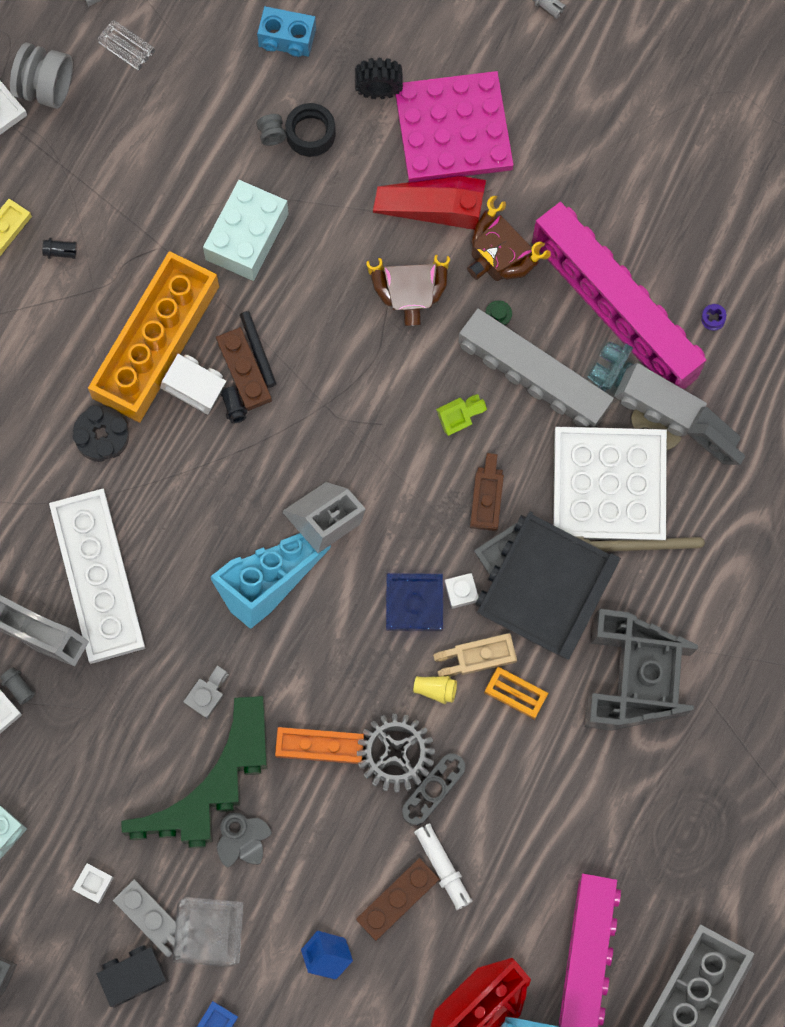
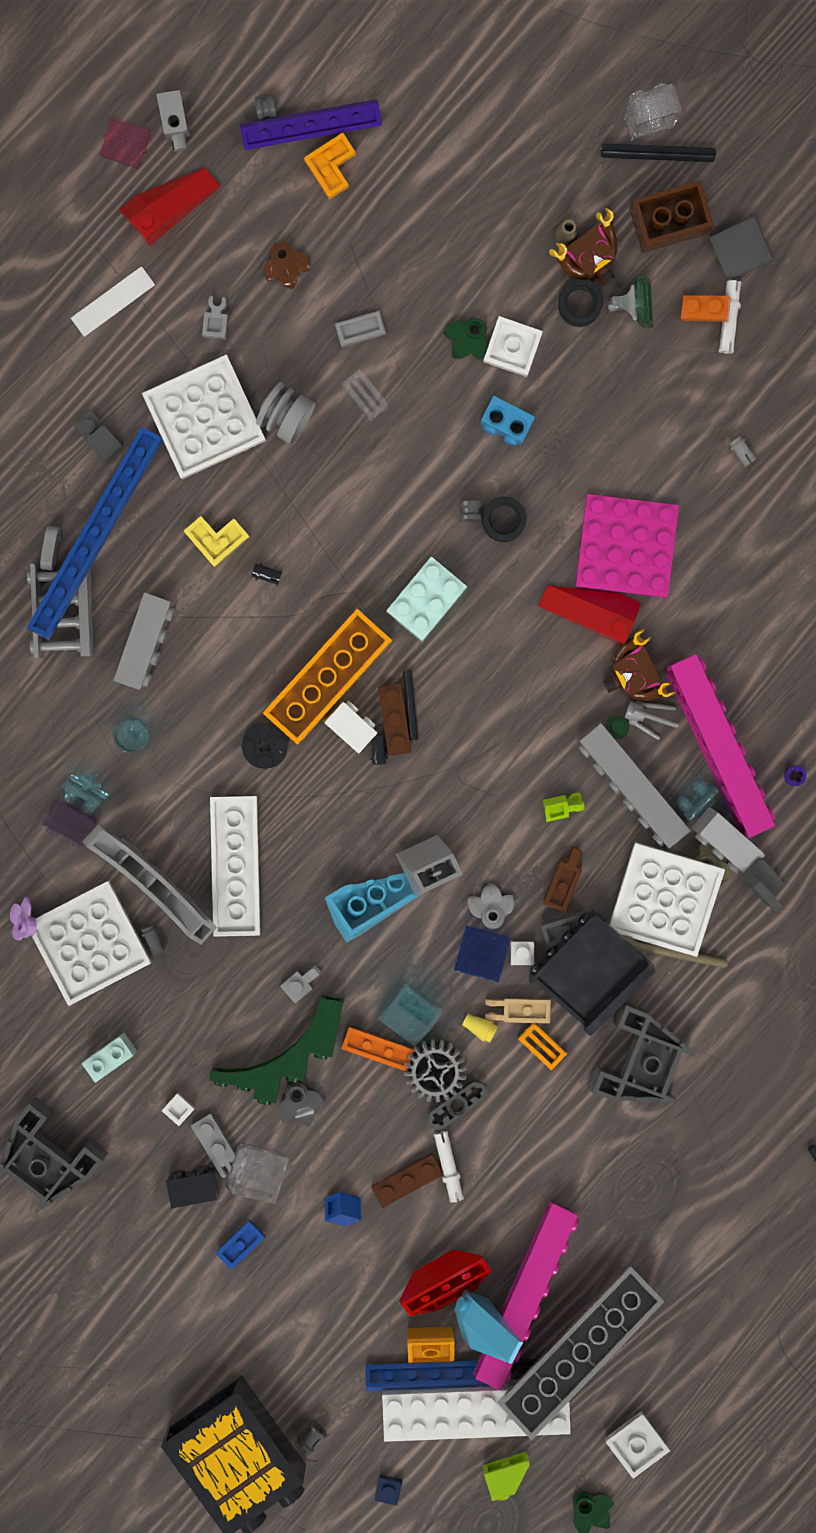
camera: 15 degrees right, 15 degrees up
(347, 692) = (410, 1014): none -> clear light blue slope
(378, 78) = (574, 490): black tyre -> none
(410, 286) = (550, 687): torso -> none
(410, 542) = (491, 902): none -> light grey plate
(515, 291) = (636, 712): none -> light grey plant

